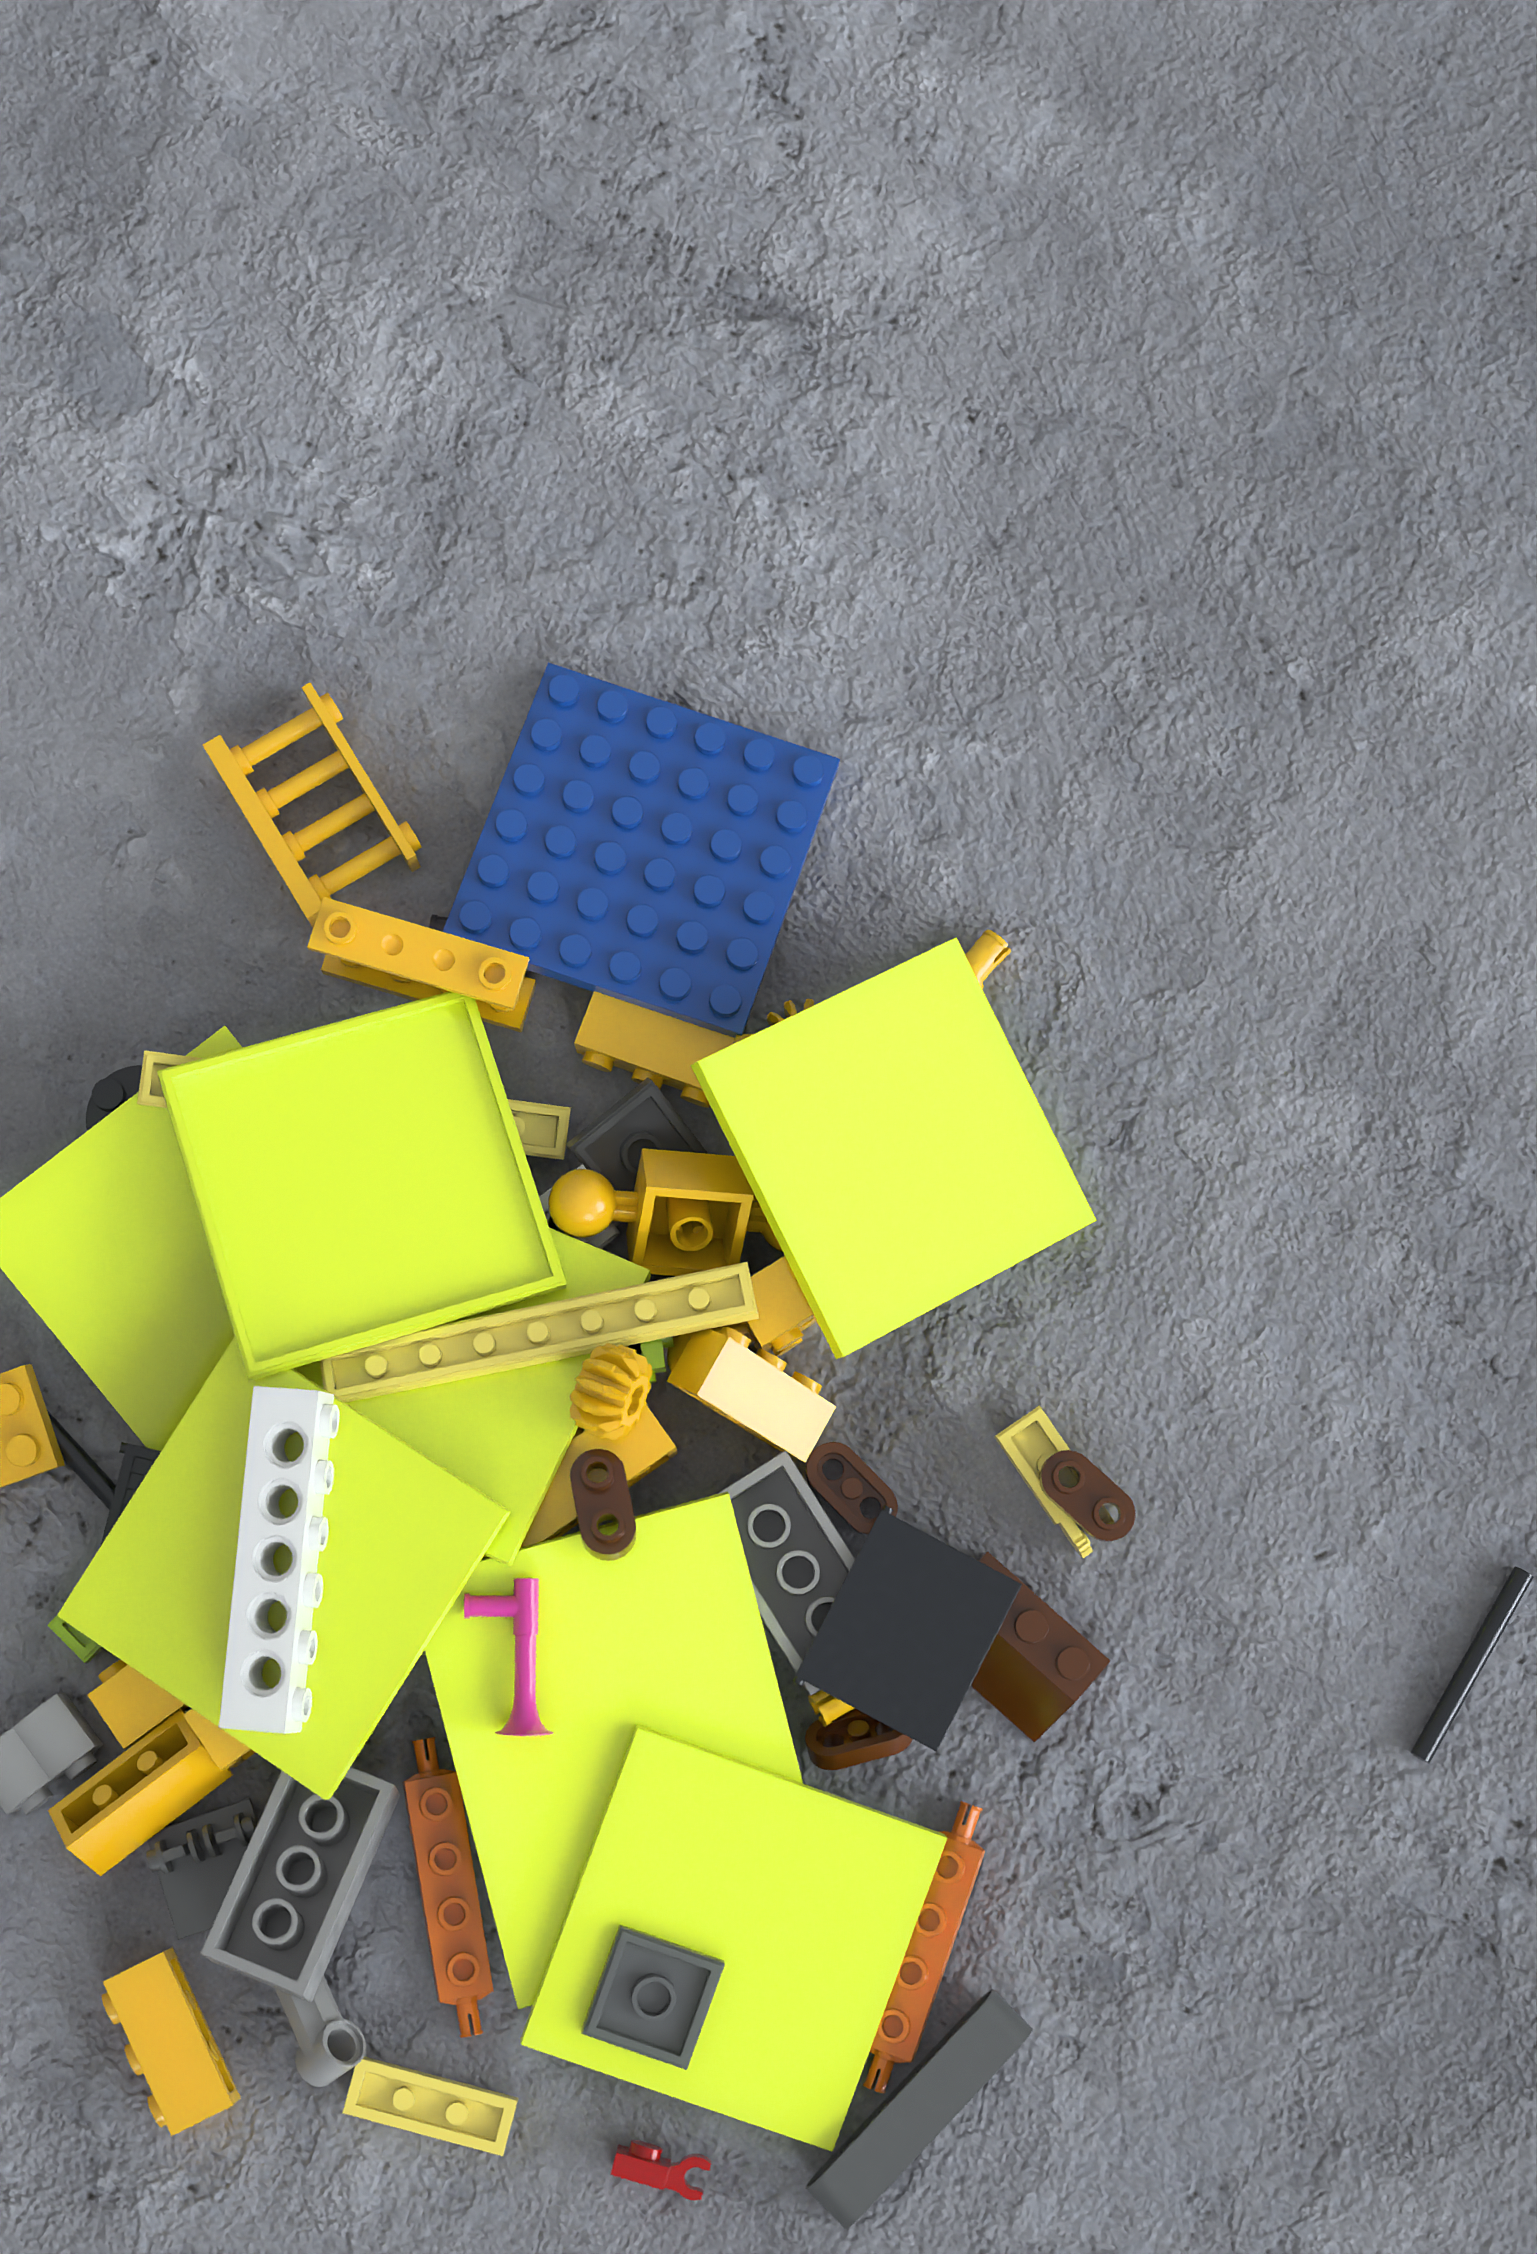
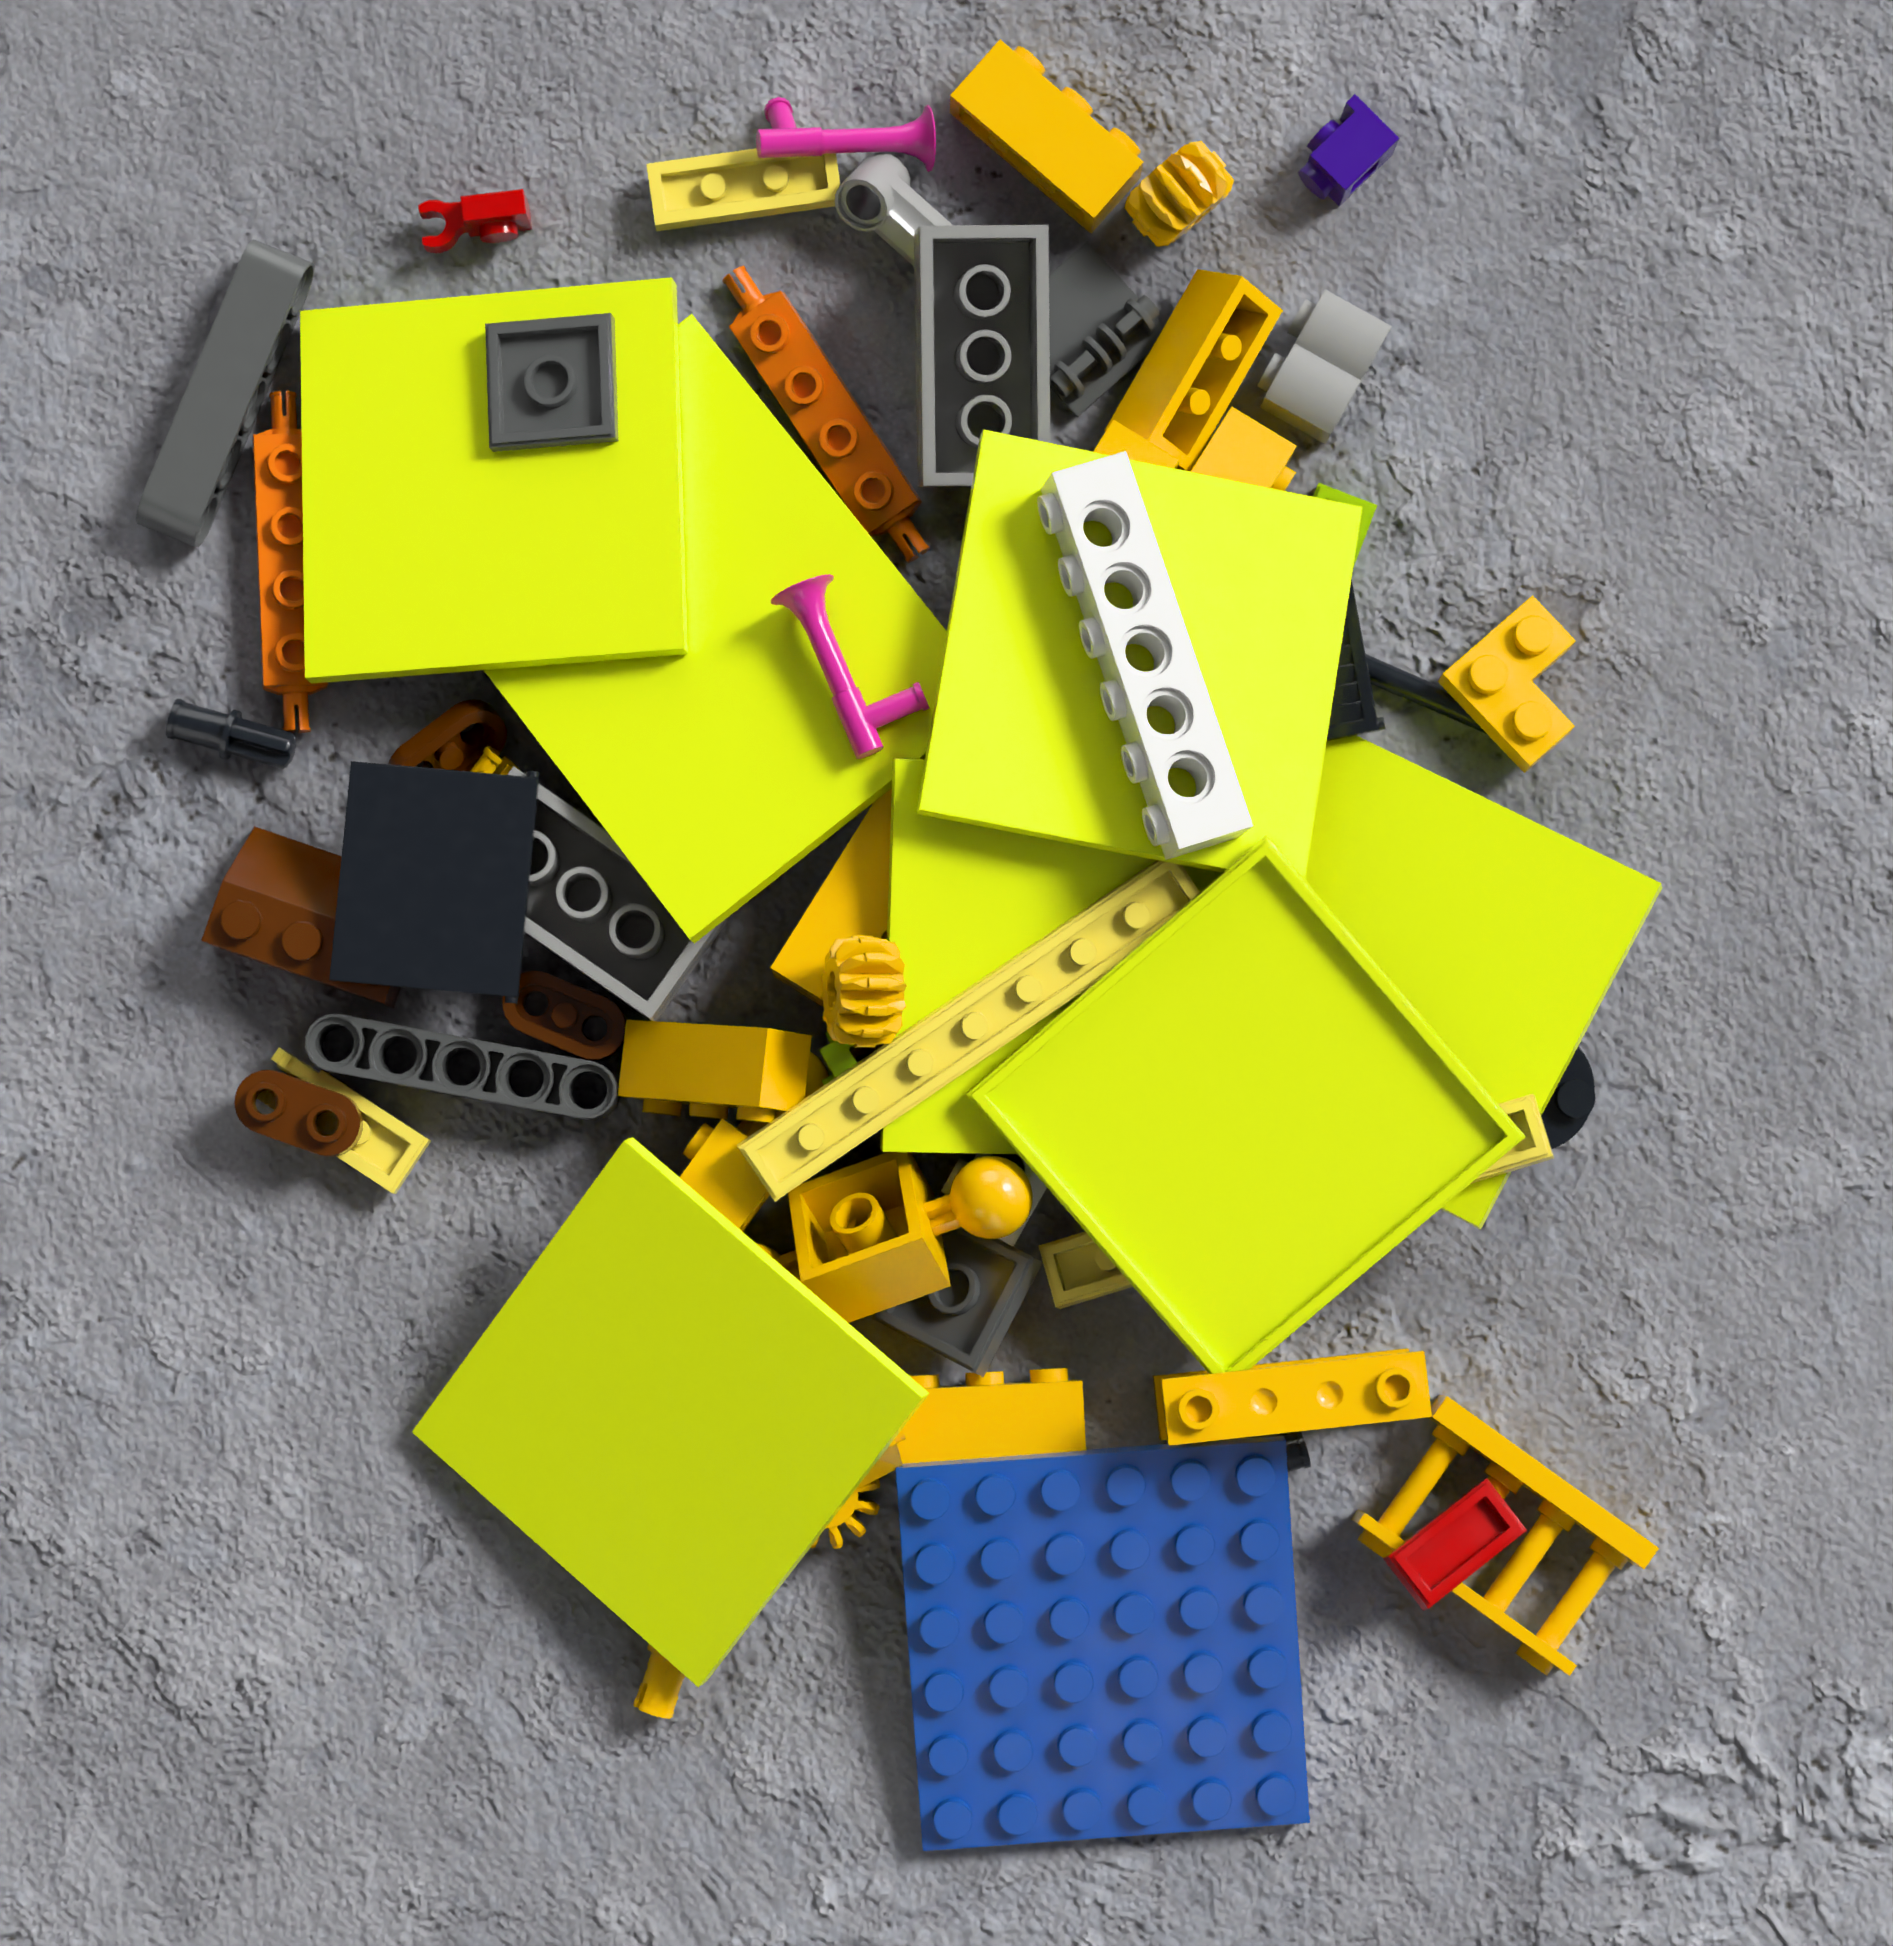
camera: 155 degrees right, 5 degrees up
(86, 1943) = (1179, 193): none -> yellow gear
(350, 808) = (1455, 1544): none -> red tile
(382, 2125) = (787, 140): none -> dark pink piece
(603, 1502) = (821, 868): reddish brown plate -> none
(972, 1481) = (434, 1055): none -> dark grey beam
(1024, 1823) = (230, 734): none -> black axle

